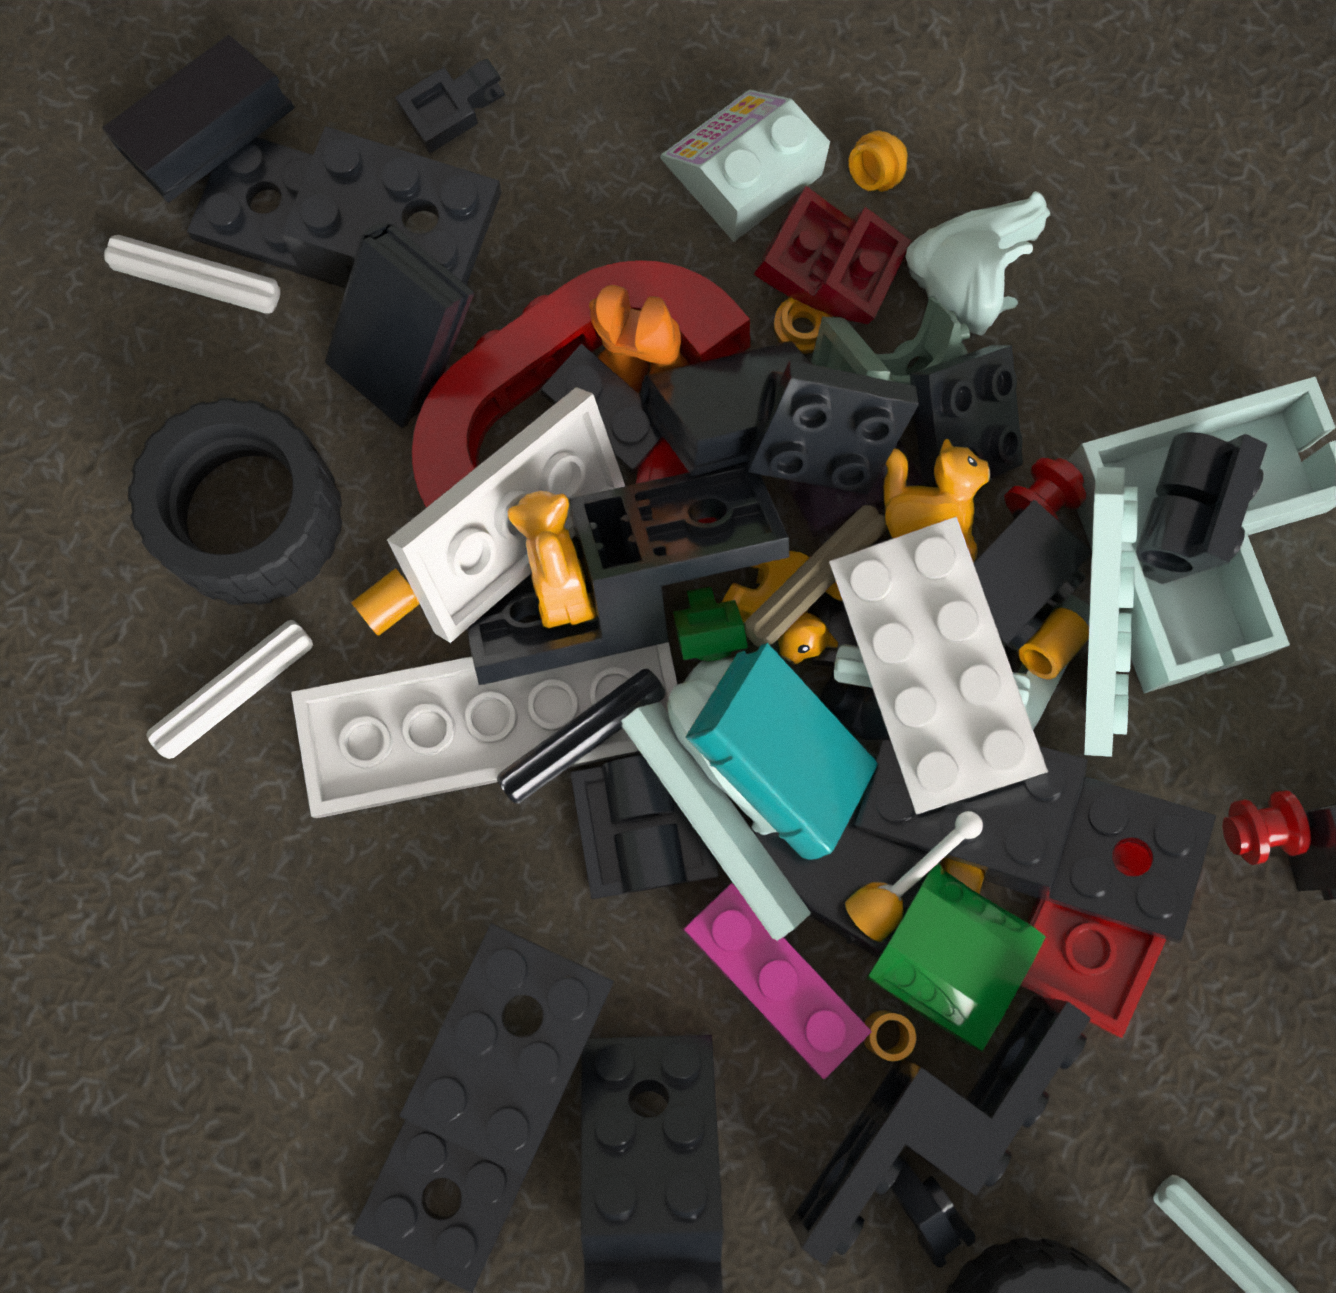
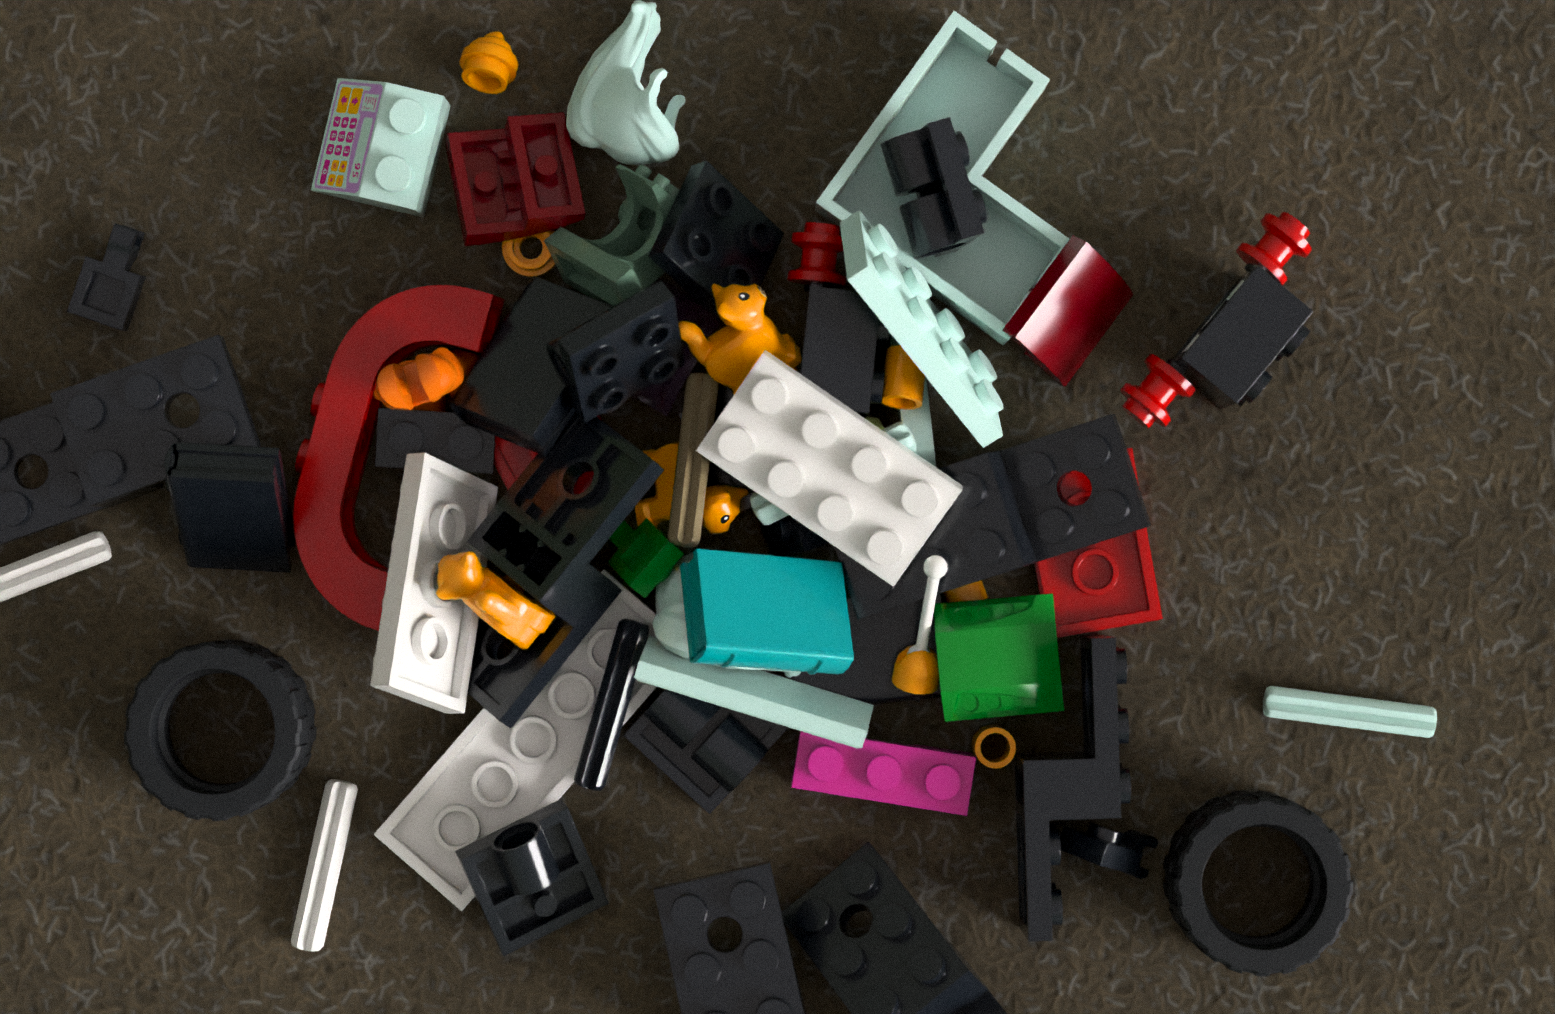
camera: 30 degrees left, 10 degrees up
(386, 602) = (385, 716): light orange hinge -> none
(394, 833) = (532, 877): none -> black plate
(1235, 699) = (1069, 310): none -> dark red slope

